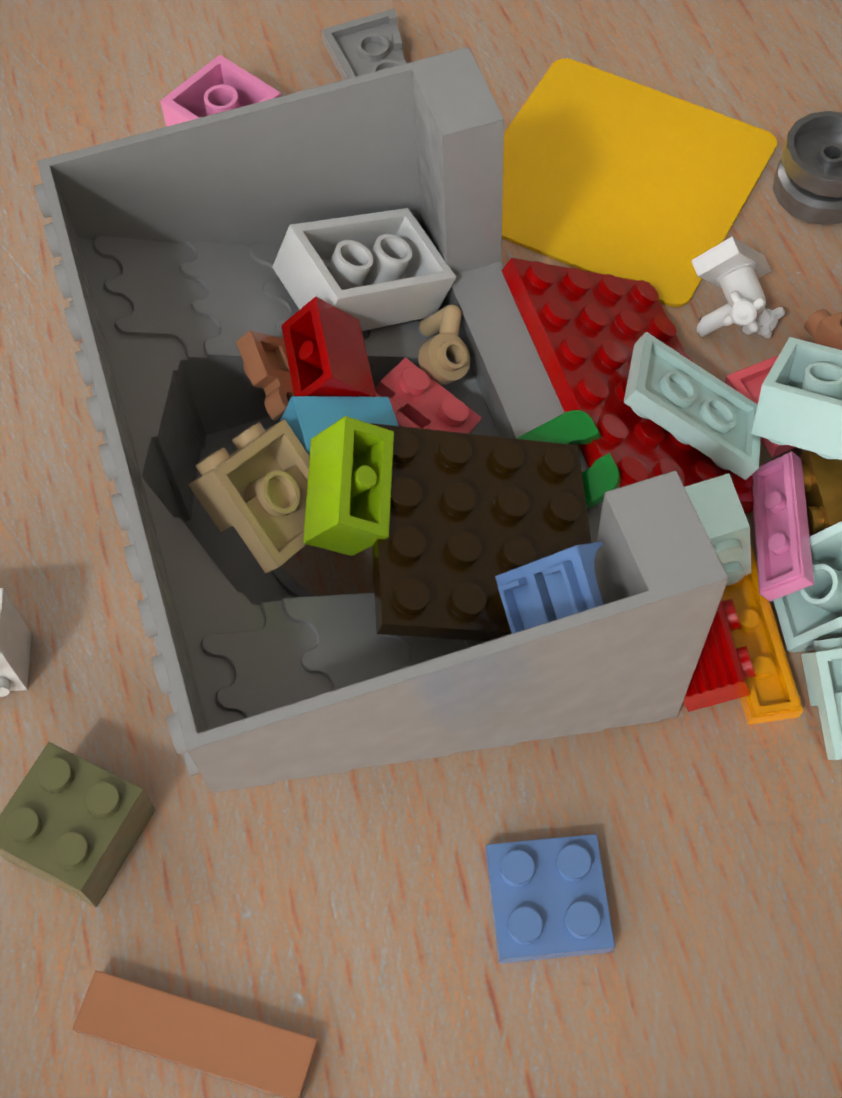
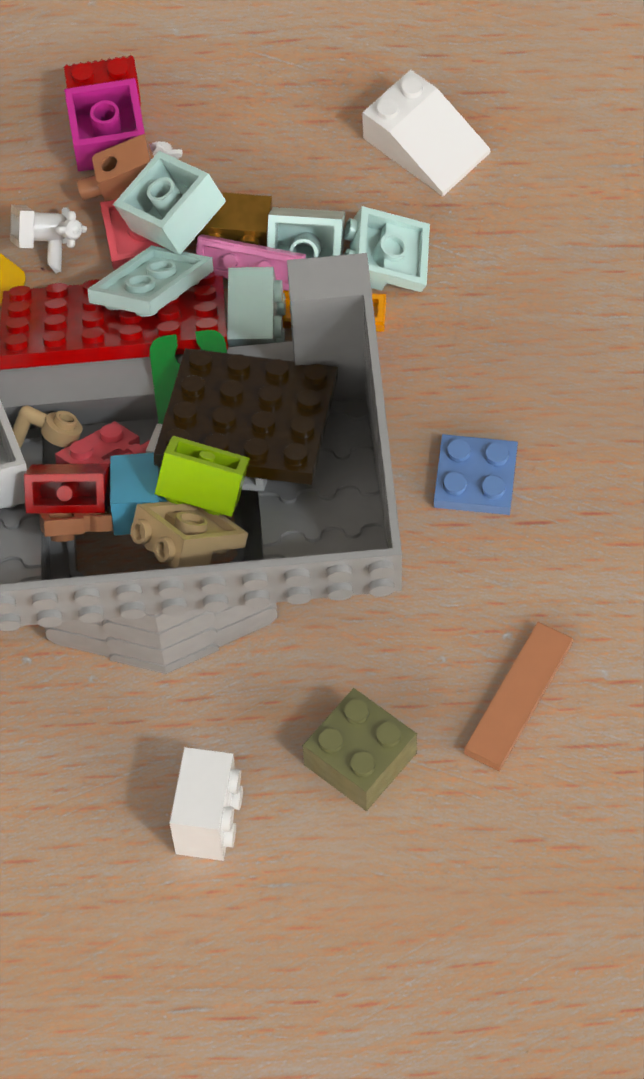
camera: 75 degrees left, 0 degrees up
(569, 585) = (330, 351): medium blue piece -> none

